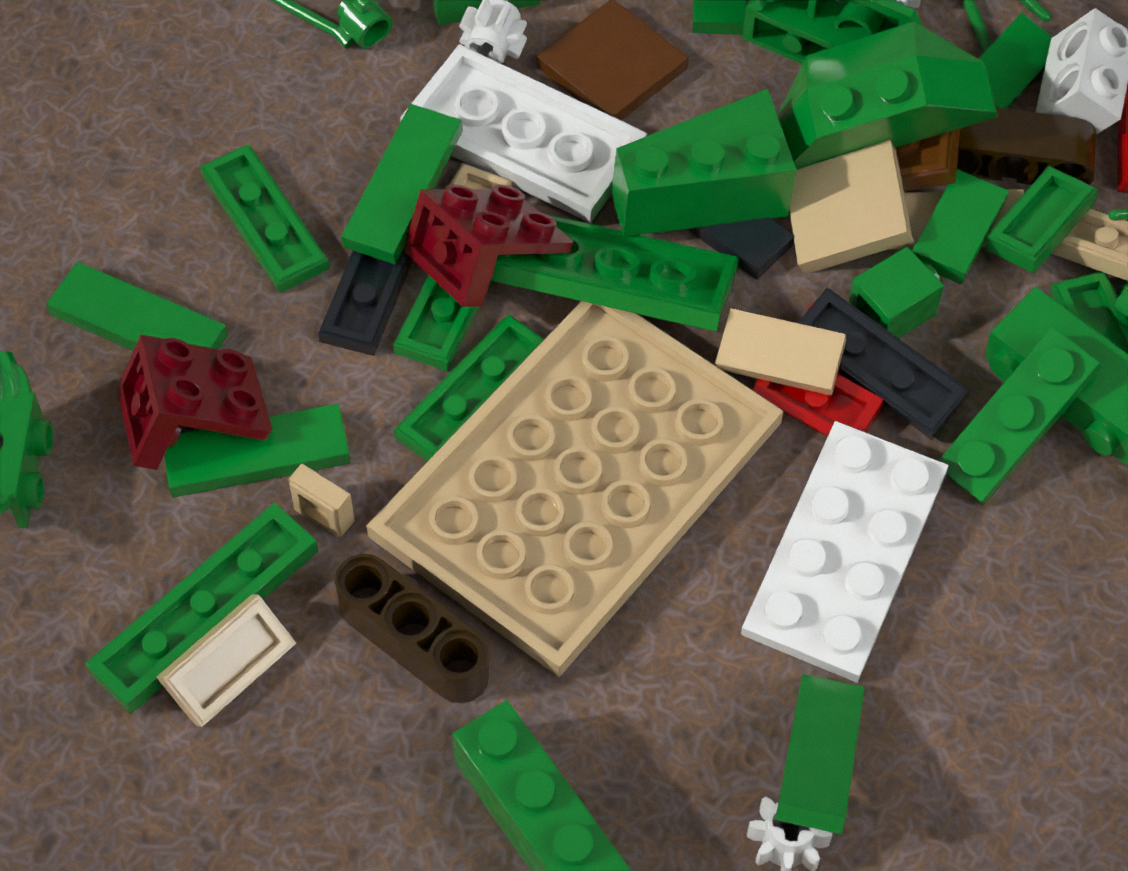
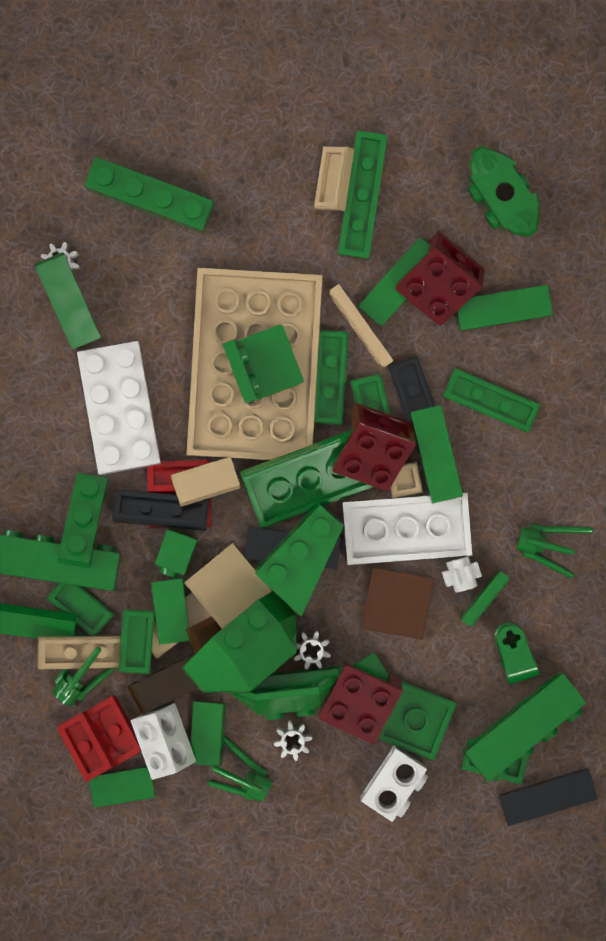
camera: 145 degrees right, 30 degrees up
(321, 501) = (350, 273): tan tile -> none
(369, 419) = (360, 326): none -> tan tile
(404, 603) = (257, 234): dark brown beam -> none
(566, 445) = (263, 364): none -> green bracket
(776, 66) = (320, 652): none -> white gear

